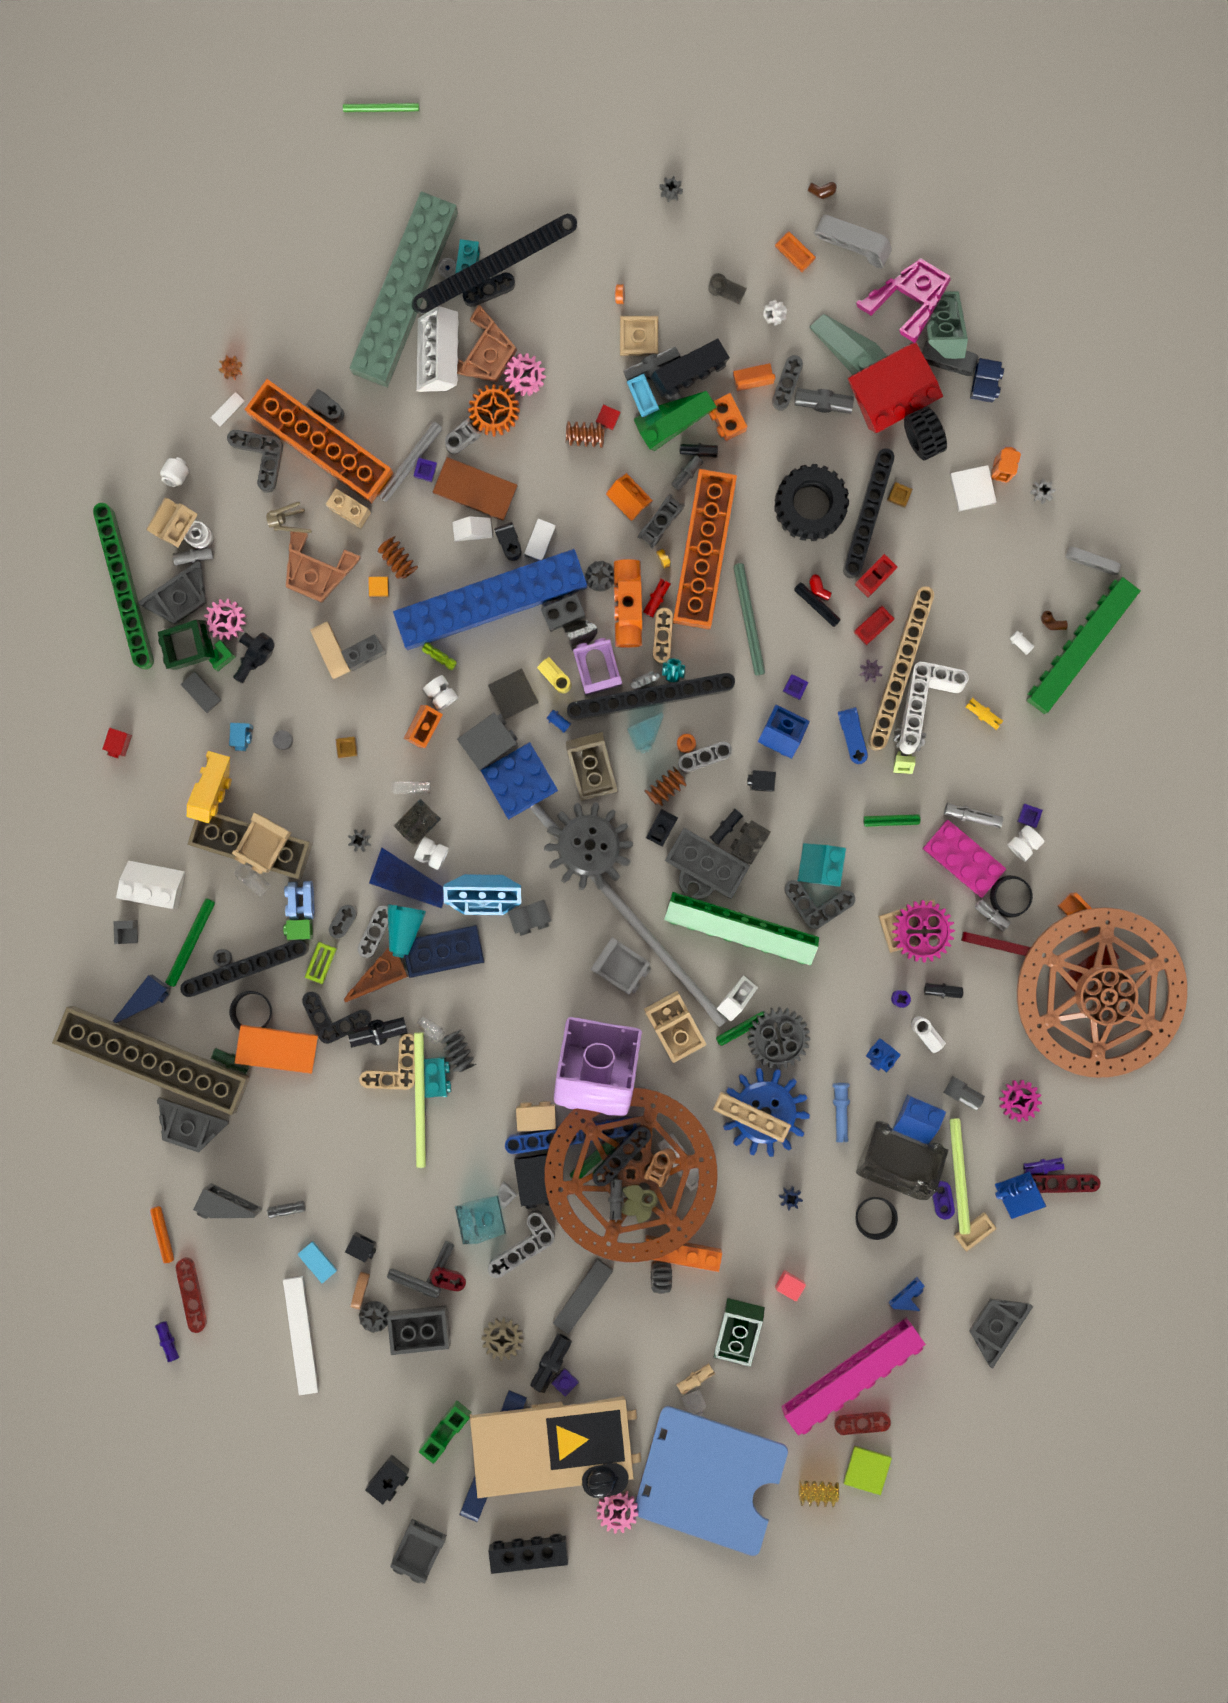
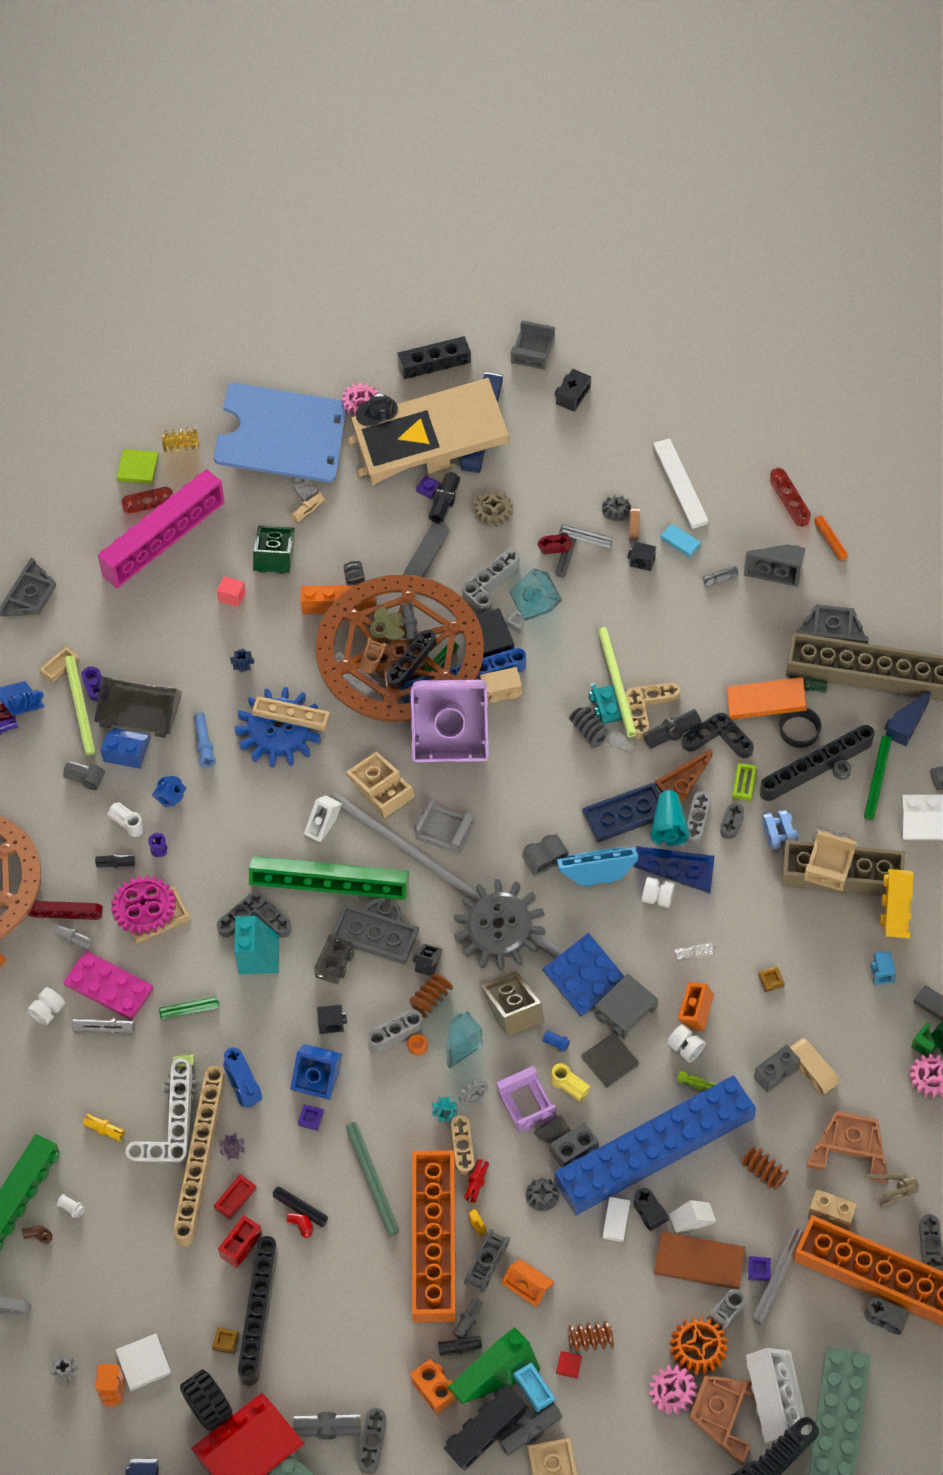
camera: 170 degrees right, 30 degrees down
(167, 1341) = (801, 458): dark purple pin -> none
(257, 654) = (886, 1046): black pin -> none
(282, 740) = (838, 974): flat silver tile -> none
(298, 929) = (772, 802): bright green brick -> none
(354, 838) = (734, 893): dark grey gear -> none
(378, 587) = (779, 1140): light orange tile -> none
(417, 822) = (679, 917): clear smoke brick -> none
(418, 1330) = (572, 500): dark grey brick -> none
(444, 1431) = (525, 438): green arch -> none
(628, 579) = (506, 1163): orange brick -> none
(659, 690) = (452, 1078): black beam -> none
(726, 826) = (361, 971): black pin -> none
(738, 1030) = (313, 794): green axle -> none
(753, 377) = (411, 1438): orange panel -> none
(761, 1042) = (288, 784): dark grey gear -> none
(818, 478) = (317, 1279): black tyre -> none
(888, 1231) = (156, 644): black tyre -> none
(903, 1299) = (119, 599): blue slope -> none
(993, 900) = (57, 974): black tyre -> none
(1023, 1108) = (27, 777): dark pink gear -> none
(1029, 815) = (44, 1035): dark purple plate -> none

